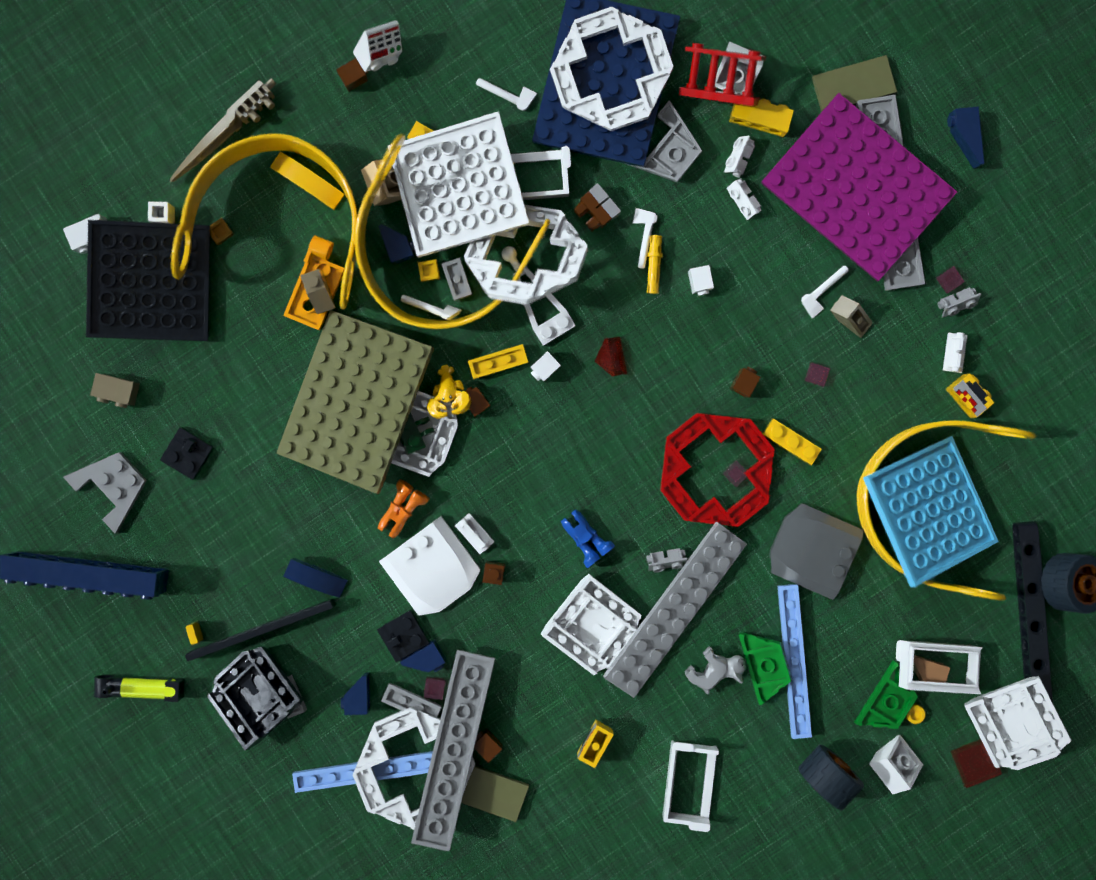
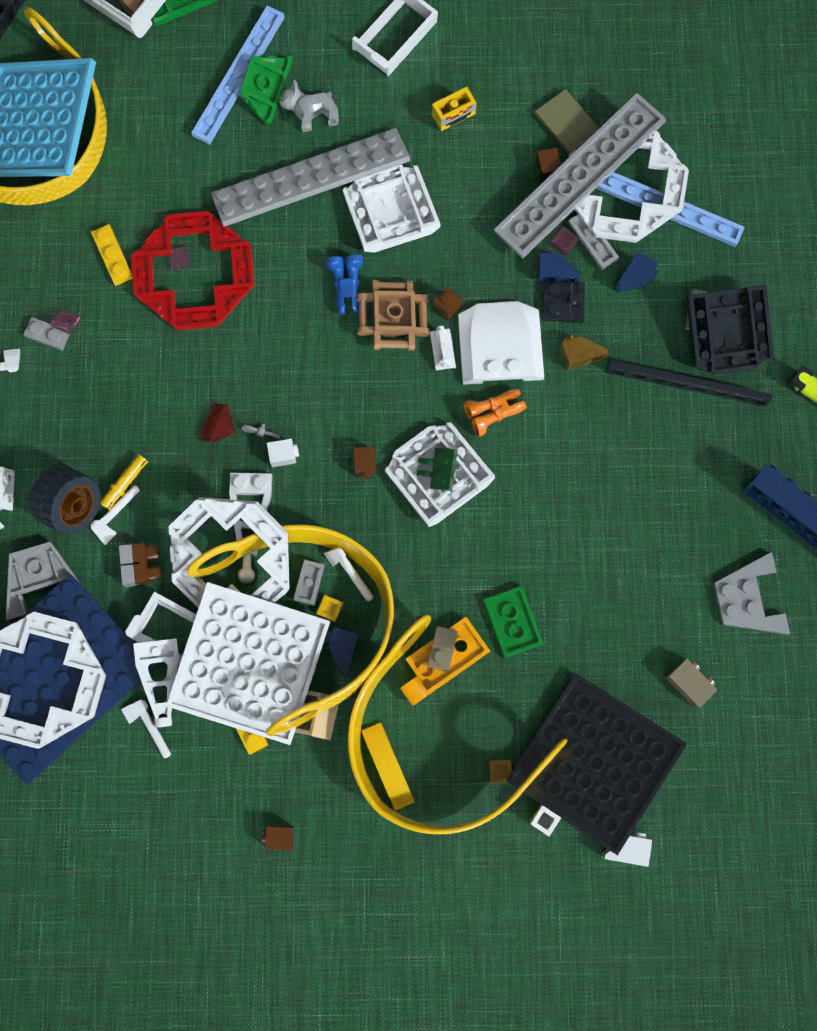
camera: 145 degrees left, 10 degrees down
(186, 453) = (660, 583): black hinge -> none
(194, 633) = (751, 417): yellow tile -> none
(231, 122) = (424, 869): dark tan piece -> none
(281, 350) = (513, 622): none -> green tile
(315, 577) = (611, 398): dark blue slope -> none
(355, 401) = (473, 529): olive plate -> none
(362, 601) = (581, 352): none -> pearl gold slope
(379, 46) = (236, 842): white slope -> none
(447, 392) = (385, 482): yellow animal -> none
(498, 361) = (321, 485): yellow plate -> none
(531, 535) = (393, 314): none -> medium nougat brick
(537, 147) = (153, 652): none -> white plate
(574, 374) = (260, 432): none -> light grey piece
(659, 563) = (282, 219): light grey hinge -> none
(685, 216) = (64, 499): none -> black wheel
(700, 280) = (92, 441): white brick -> none
(745, 382) = (115, 328): reddish brown brick -> none
(789, 362) = (65, 322): none -> clear pink tile
(798, 343) = (45, 334): none -> light grey plate
(814, 550) = (157, 153): dark grey wedge -> none
(817, 374) = (50, 297): clear pink tile -> none

